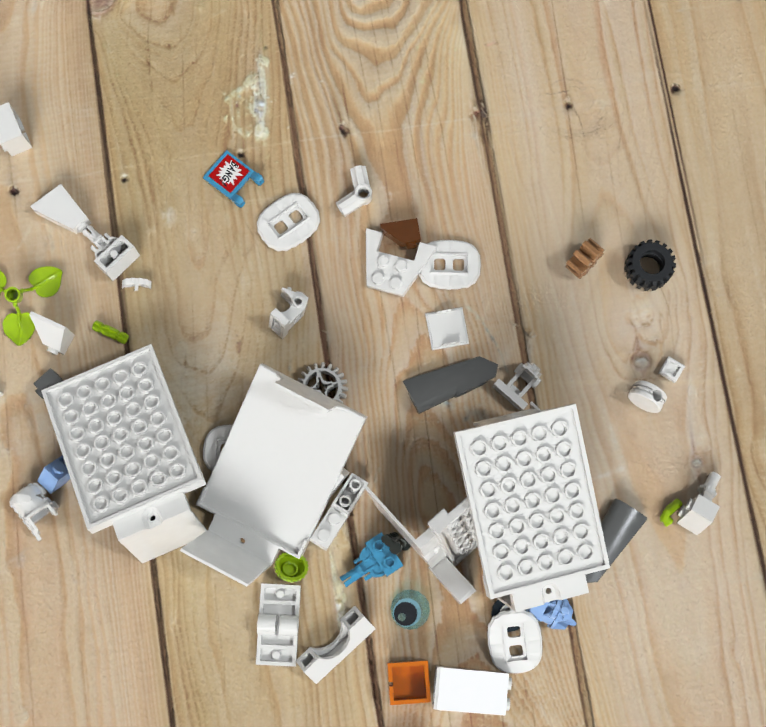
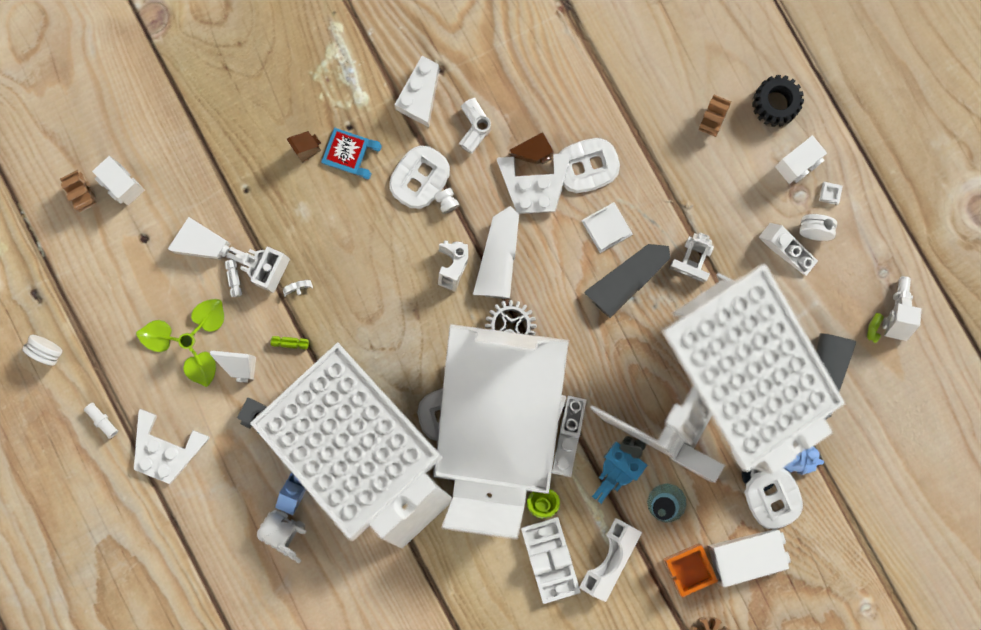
camera: 15 degrees left, 5 degrees up
(81, 255) = (233, 278): none -> white axle
(191, 155) = (304, 145): none -> reddish brown slope
(305, 252) = (447, 200): none -> white wheel
(316, 143) = (419, 92): none -> white wedge
(337, 315) = (498, 257): none -> white panel
(612, 406) = (788, 248): none -> white slope
(652, 327) = (804, 157): none -> white piece

